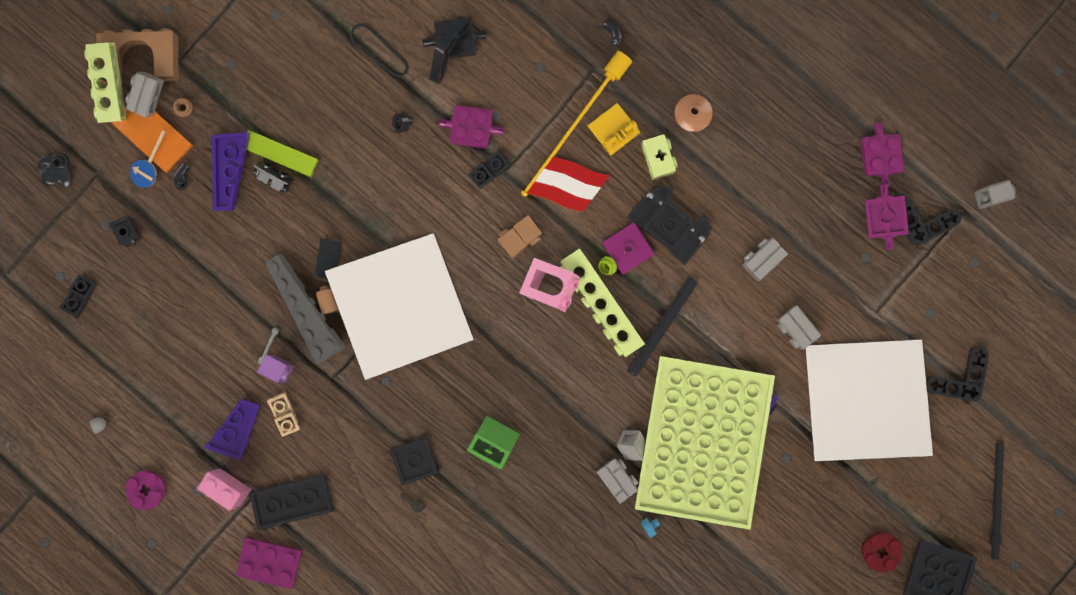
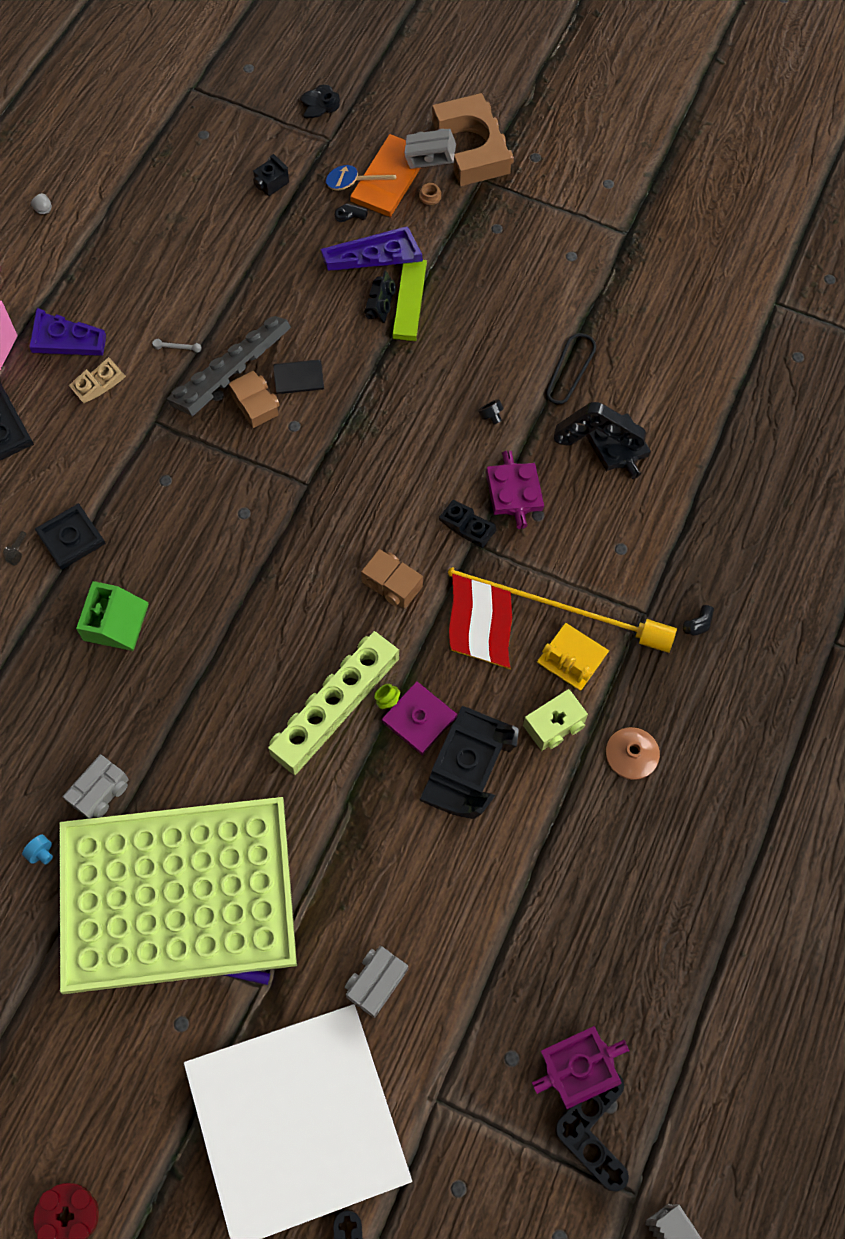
camera: 70 degrees right, 20 degrees down
(78, 297) = (184, 155): black slope -> none
(111, 73) = (430, 109): yellowish green brick -> none
(275, 368) = (148, 351): medium lavender brick -> none
(399, 306) = (262, 466): white piece -> none
(535, 276) = (342, 610): bright pink panel -> none
(631, 445) = (149, 794): light grey panel -> none
(662, 326) = (326, 791): black axle -> none
(764, 259) = (461, 903): light grey brick -> none
(882, 154) = (671, 1037): magenta plate -> none

